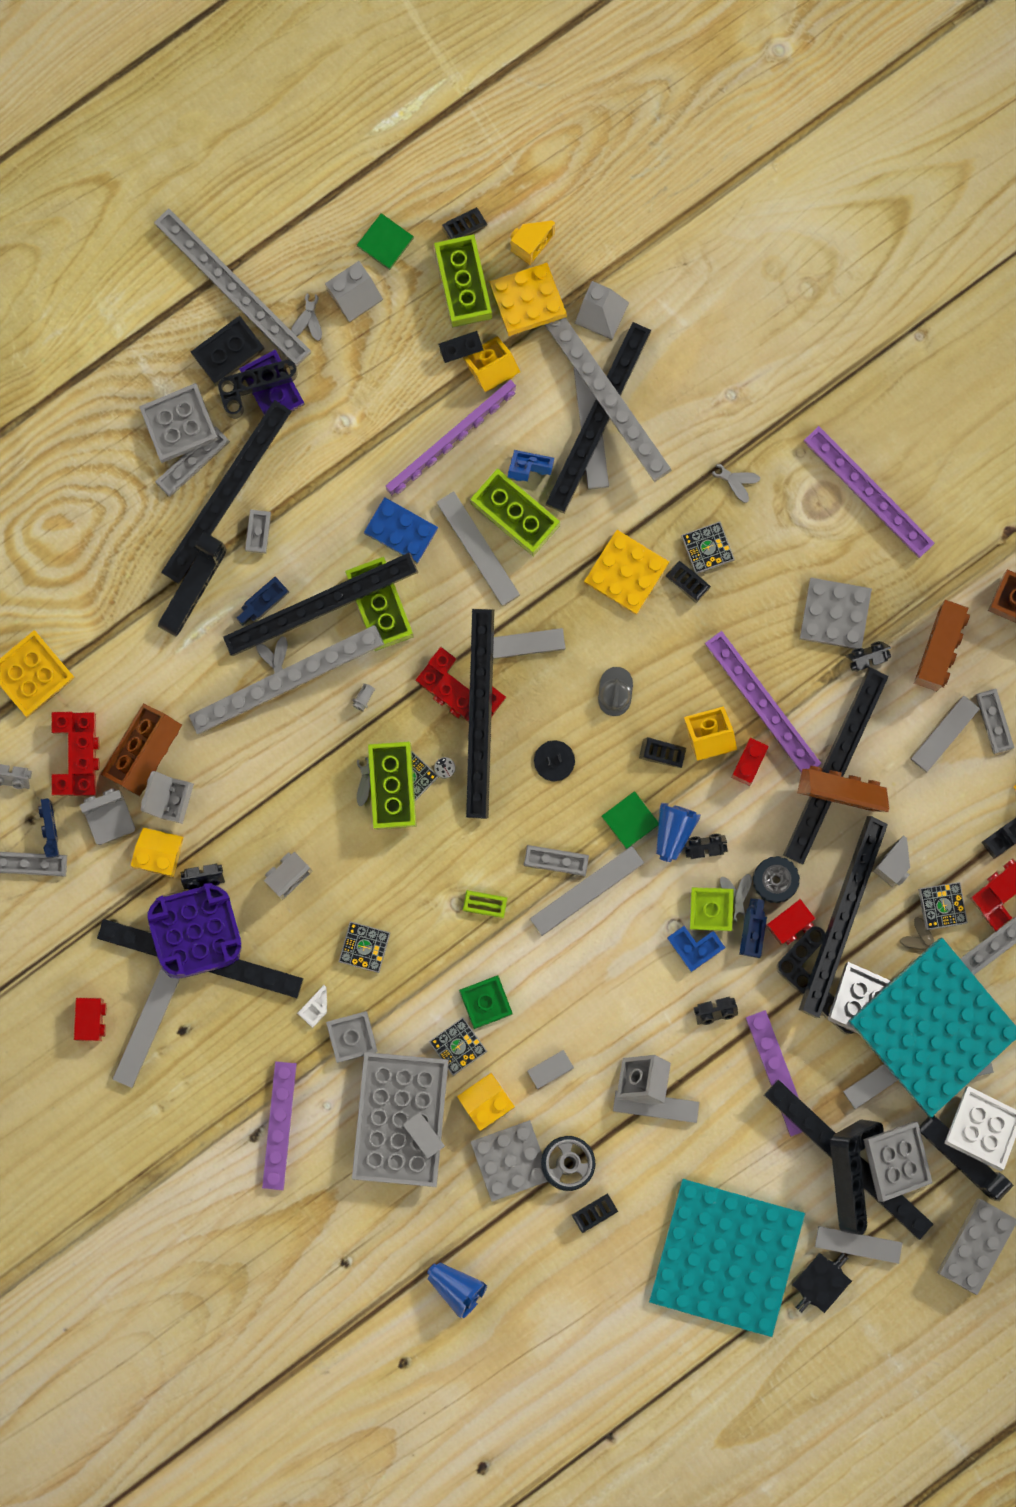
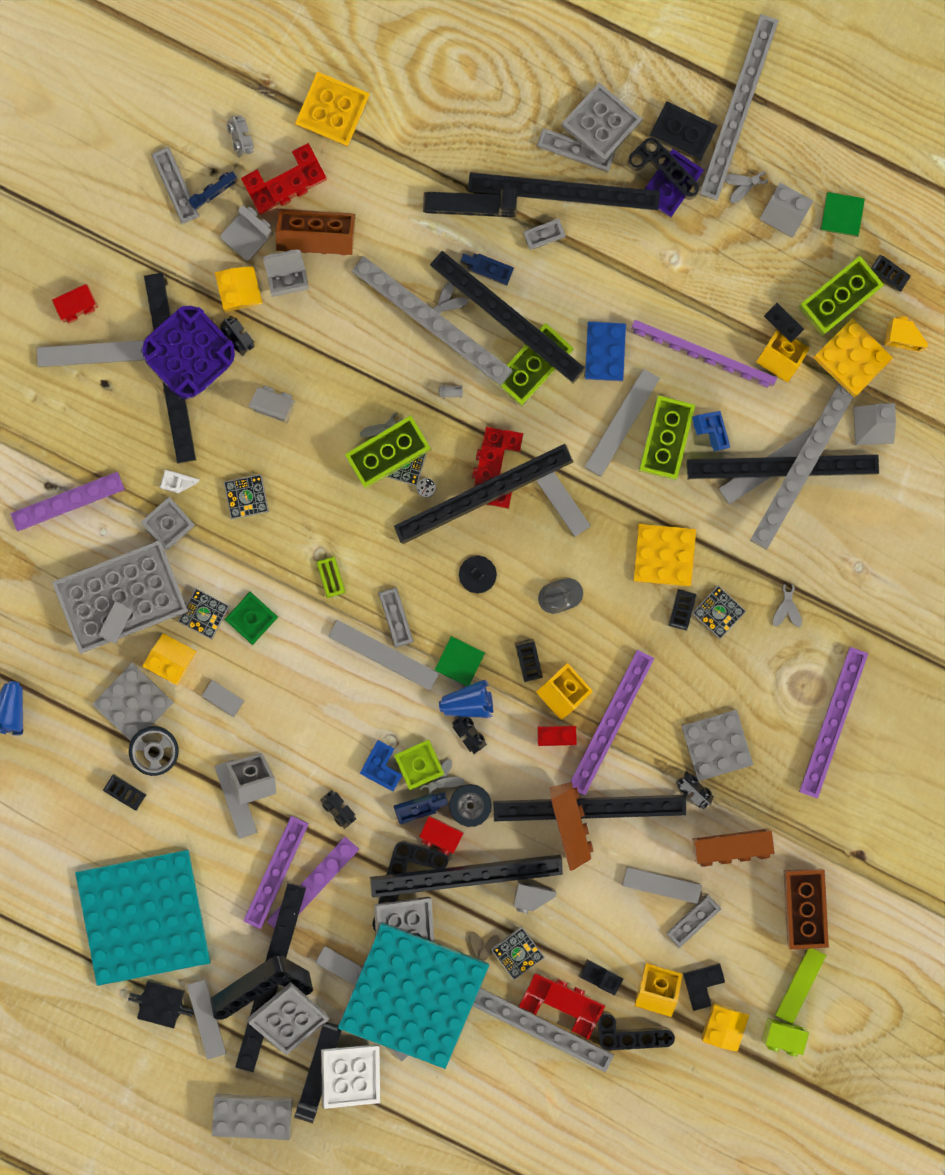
camera: 65 degrees right, 5 degrees up
(747, 1102) = (276, 872): none -> medium lavender plate

